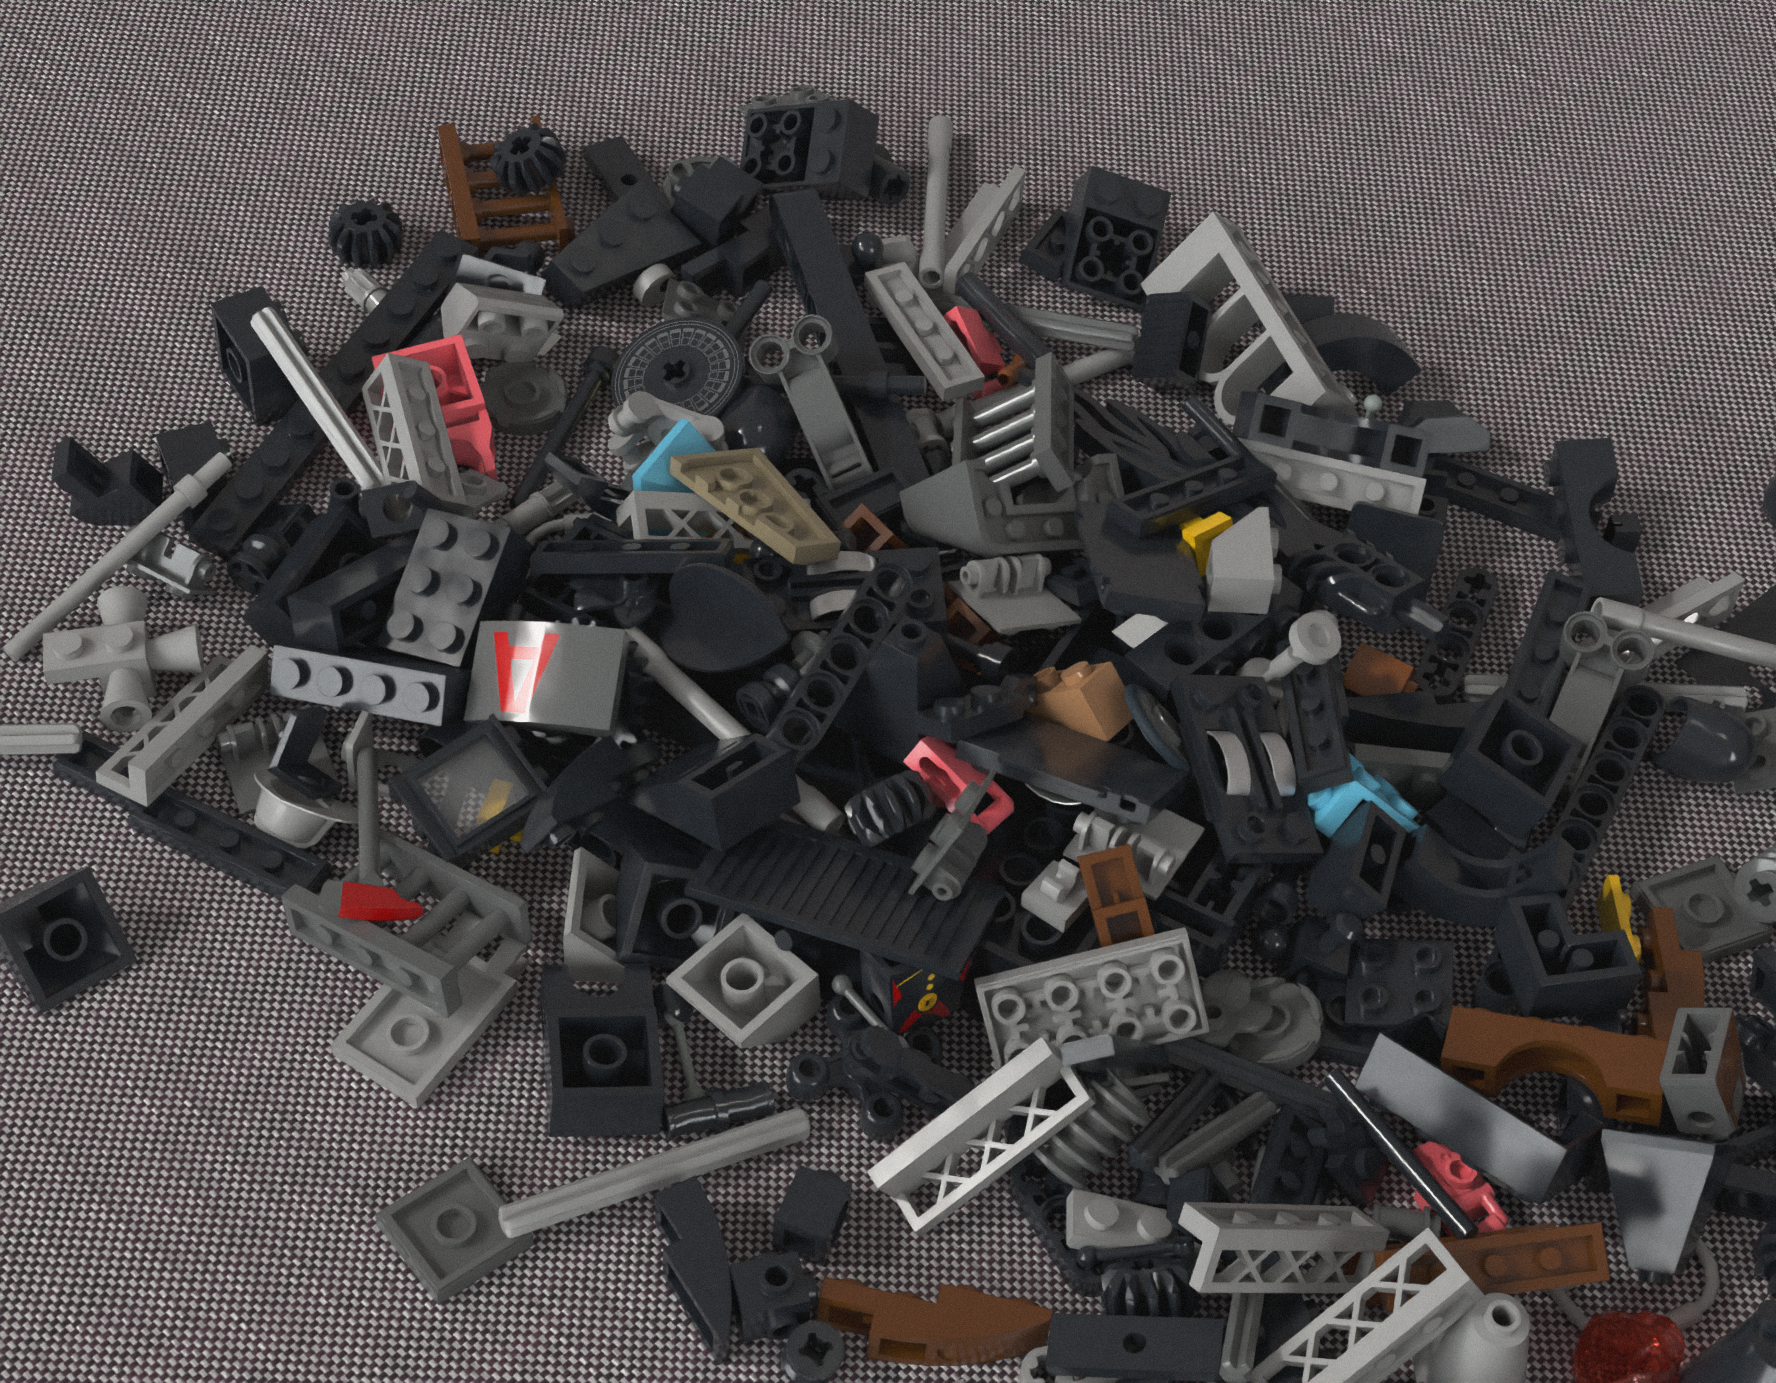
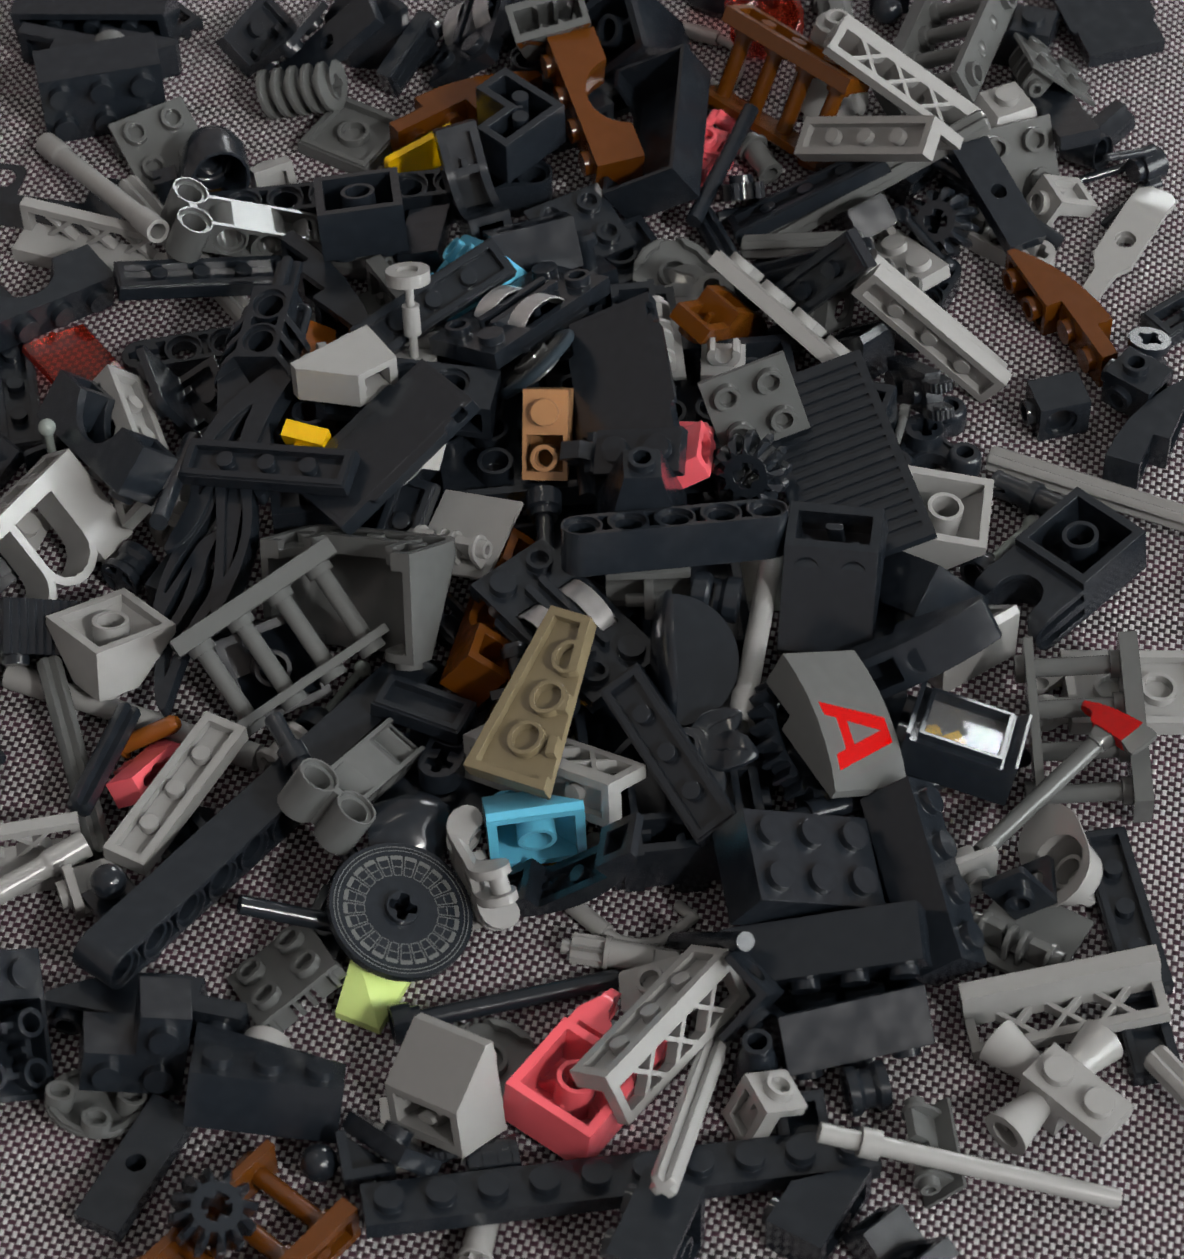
camera: 120 degrees left, 0 degrees up
(302, 491) = (761, 1102): none -> light grey bracket
(1117, 360) = (110, 642): none -> light grey slope
(1513, 544) = (71, 351): none -> clear red piece
(1661, 796) = (273, 172): none -> light grey tile

